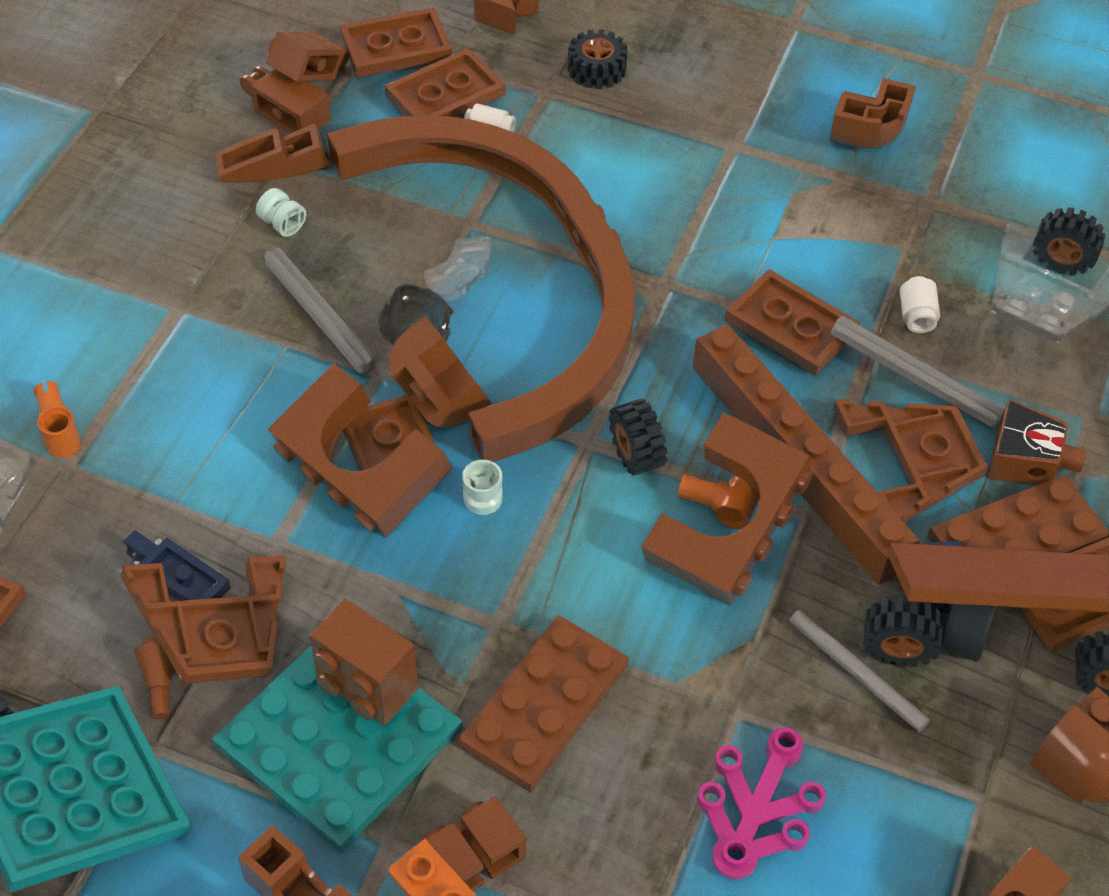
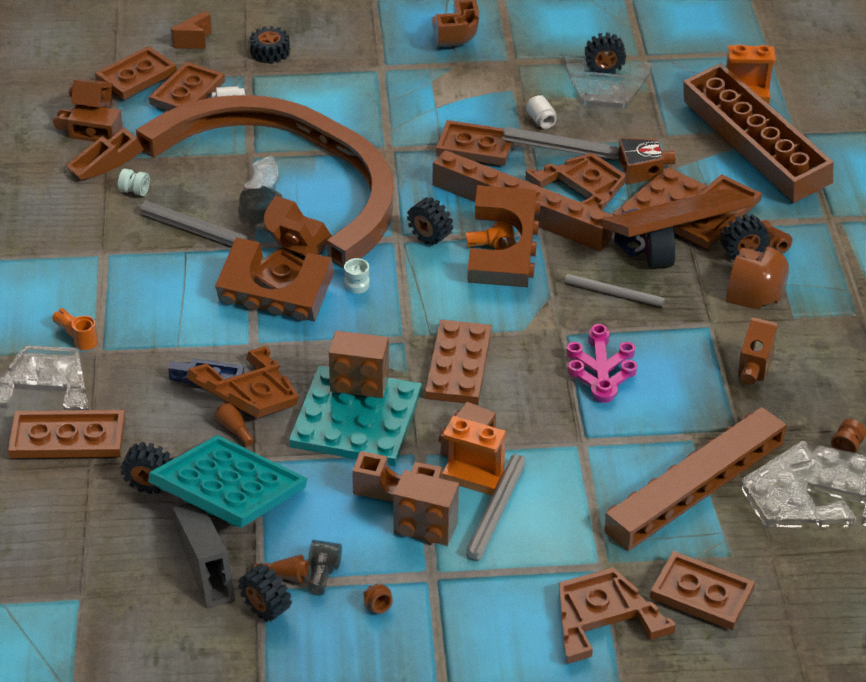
camera: 25 degrees left, 10 degrees down
(903, 632) = (630, 260): black wheel -> none

